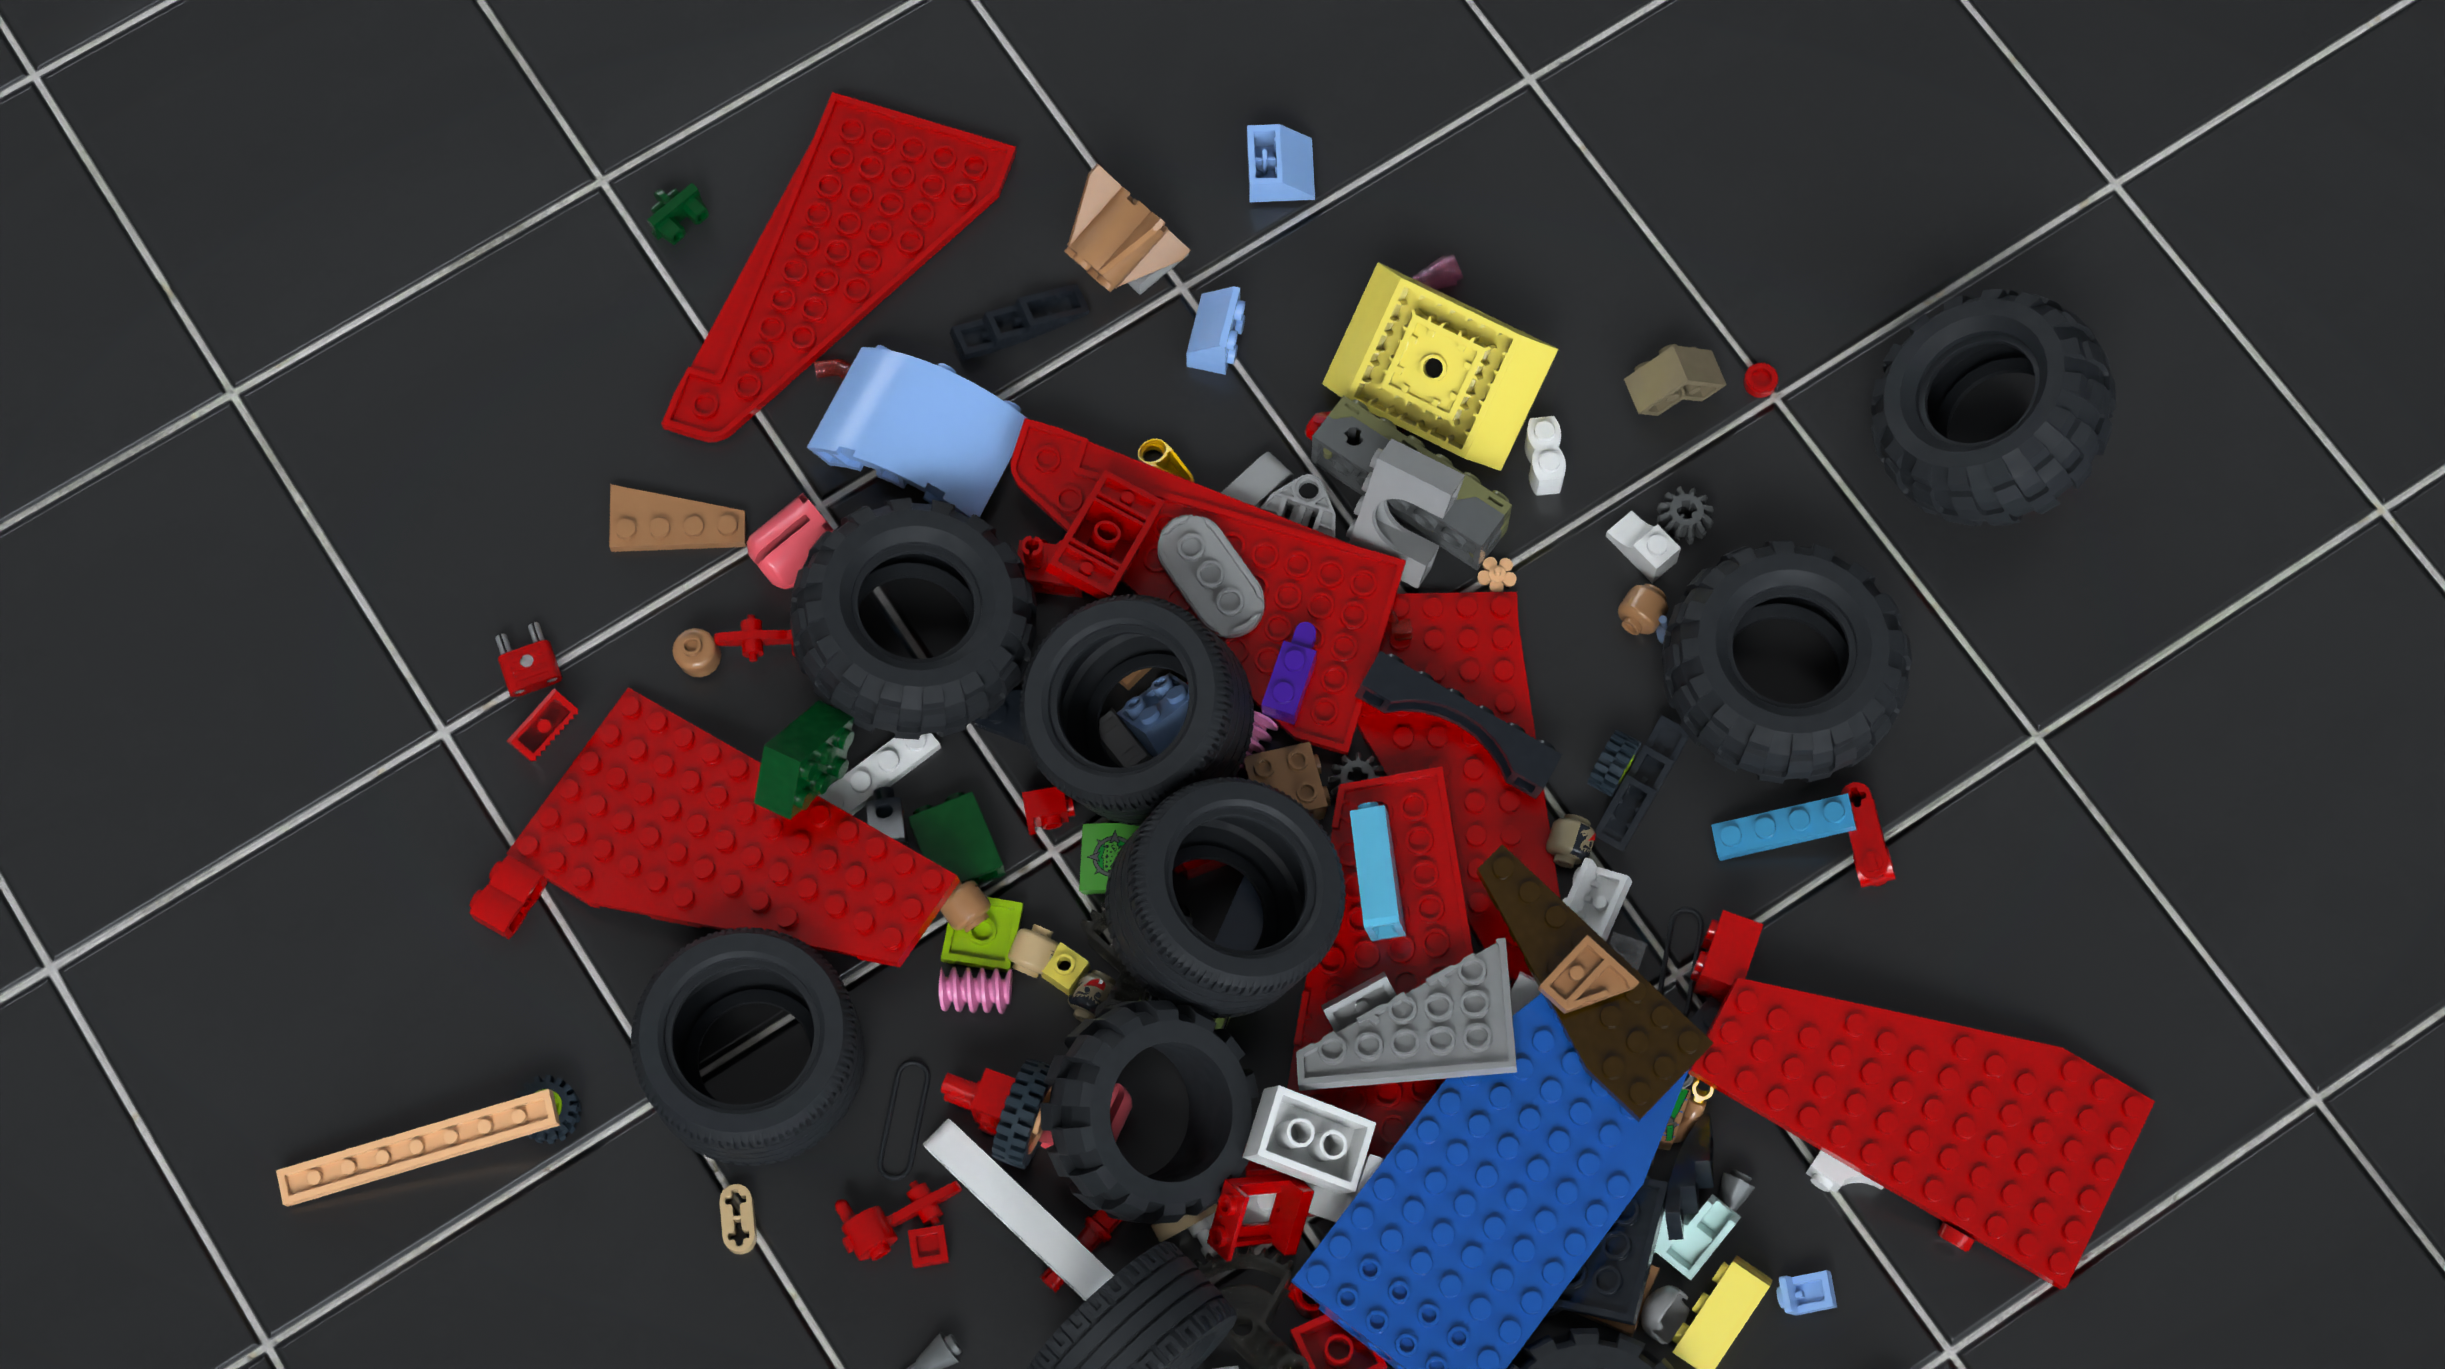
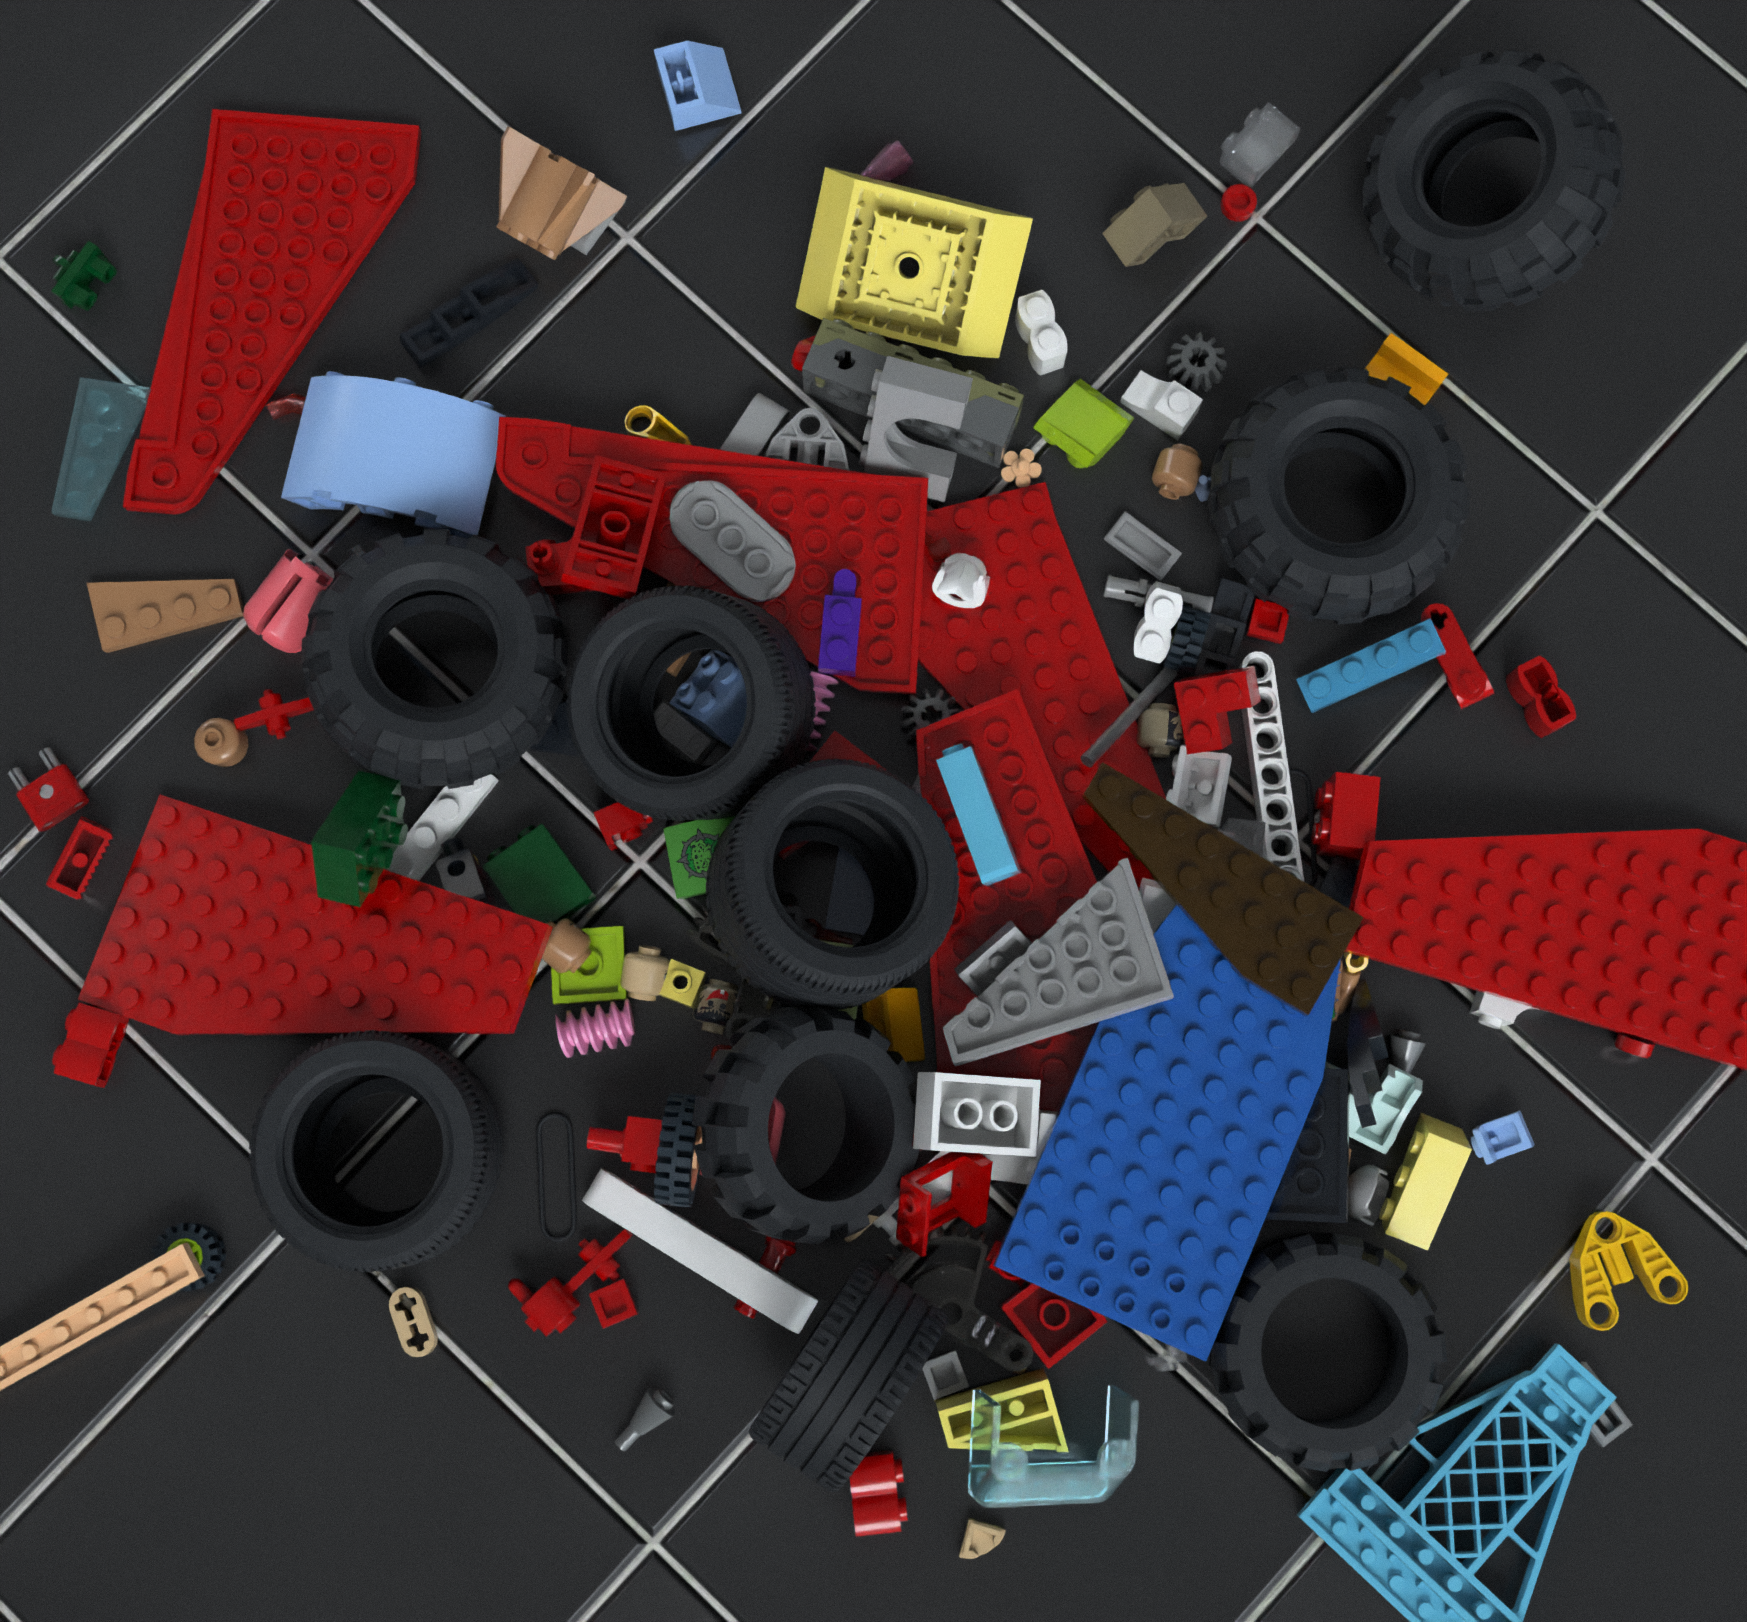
camera: 15 degrees left, 10 degrees up
(653, 359) = (96, 440): none -> clear light blue wing
(1216, 330) = (674, 276): light blue slope -> none
(1262, 1047) = (899, 1019): none -> light orange panel
(1294, 772) = (863, 734): medium nougat bracket -> none
(1417, 653) = (964, 577): none -> white hair
(1521, 758) = (1092, 658): black arch -> none
(1544, 819) = (1128, 716): none -> flat silver bar
(1560, 701) = (1119, 587): none -> light grey pin
(1565, 548) = (1083, 424): none -> lime slope
(1586, 978) = (1222, 884): medium nougat wing -> none
(1593, 732) = (1153, 631): none -> white brick
(1594, 670) = (1142, 546): none -> light grey tile
(1616, 825) = (1205, 703): none -> red brick
(1666, 890) = (1274, 759): none -> white beam
(1696, 765) = (1268, 621): none -> red plate
(1790, 331) = (1259, 144): none -> clear brick
(1885, 564) = (1408, 366): none -> light orange panel
(1935, 883) = (1537, 690): none -> red brick

